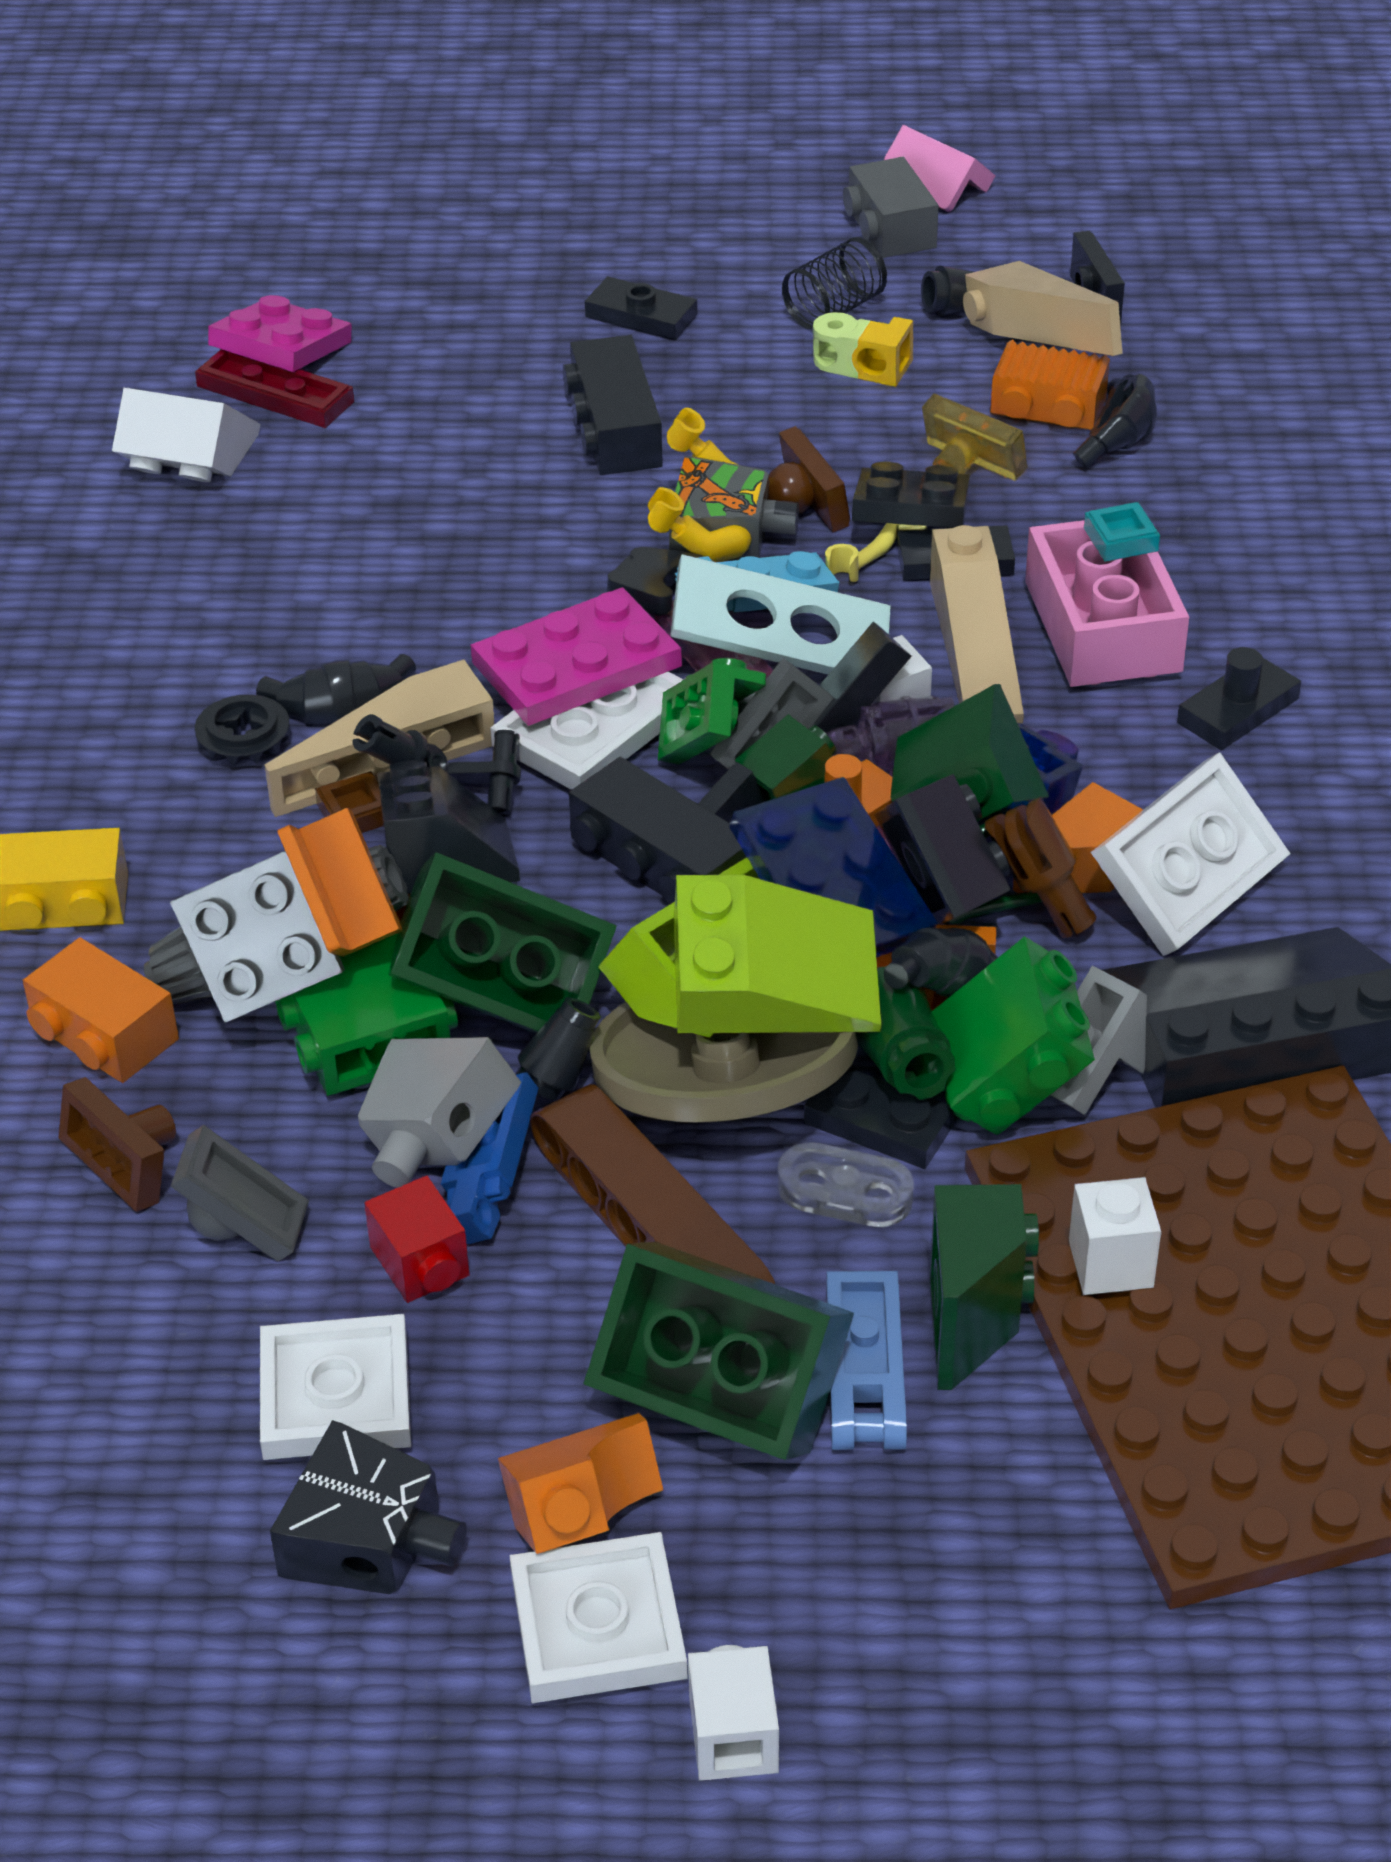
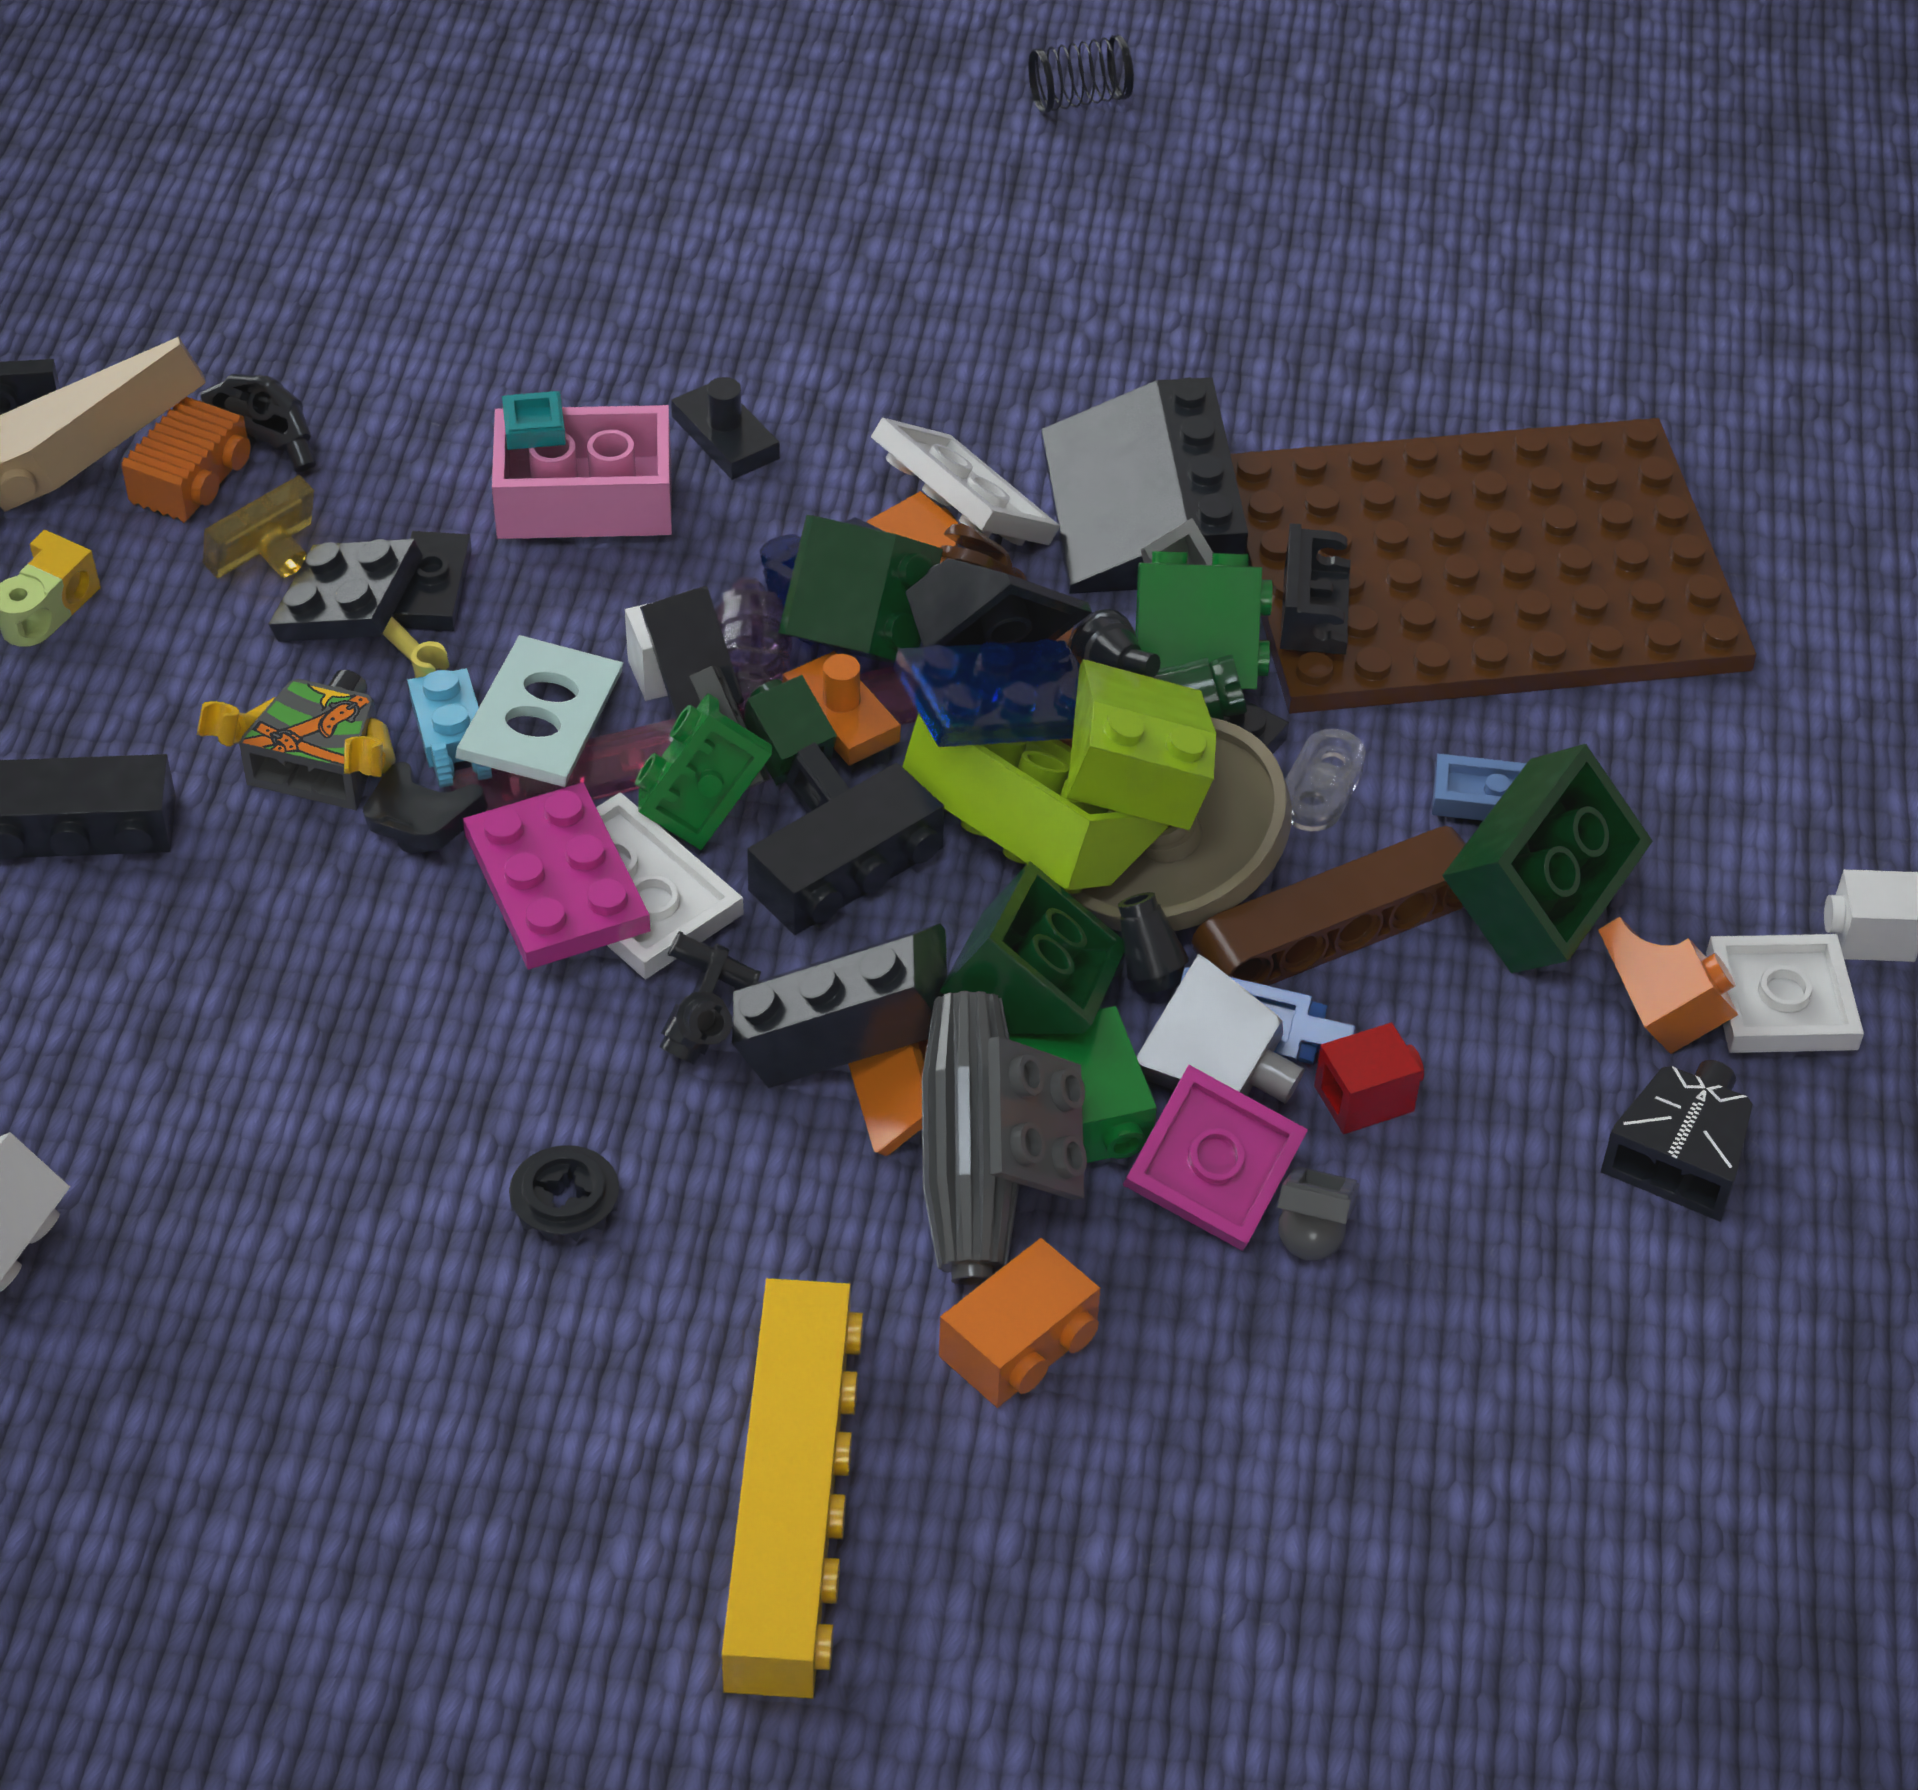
camera: 85 degrees left, 5 degrees up
(117, 1145) = (1217, 1312): reddish brown tile -> none
(296, 1112) = (1215, 1157): none -> dark pink plate
(333, 1372) = (1534, 1154): white plate -> none
(335, 688) = (524, 1105): black piece -> none
(340, 883) = (986, 1010): orange panel -> none
(357, 793) = (713, 1103): reddish brown tile -> none
(439, 703) = (620, 1043): tan slope -> none
(809, 480) = (275, 659): reddish brown tile -> none
(973, 613) = (550, 574): tan slope -> none
(978, 1274) = (1478, 694): dark green slope -> none
(1100, 1129) = (1315, 593): none -> black hinge
(1114, 1235) = (1444, 598): white brick -> none

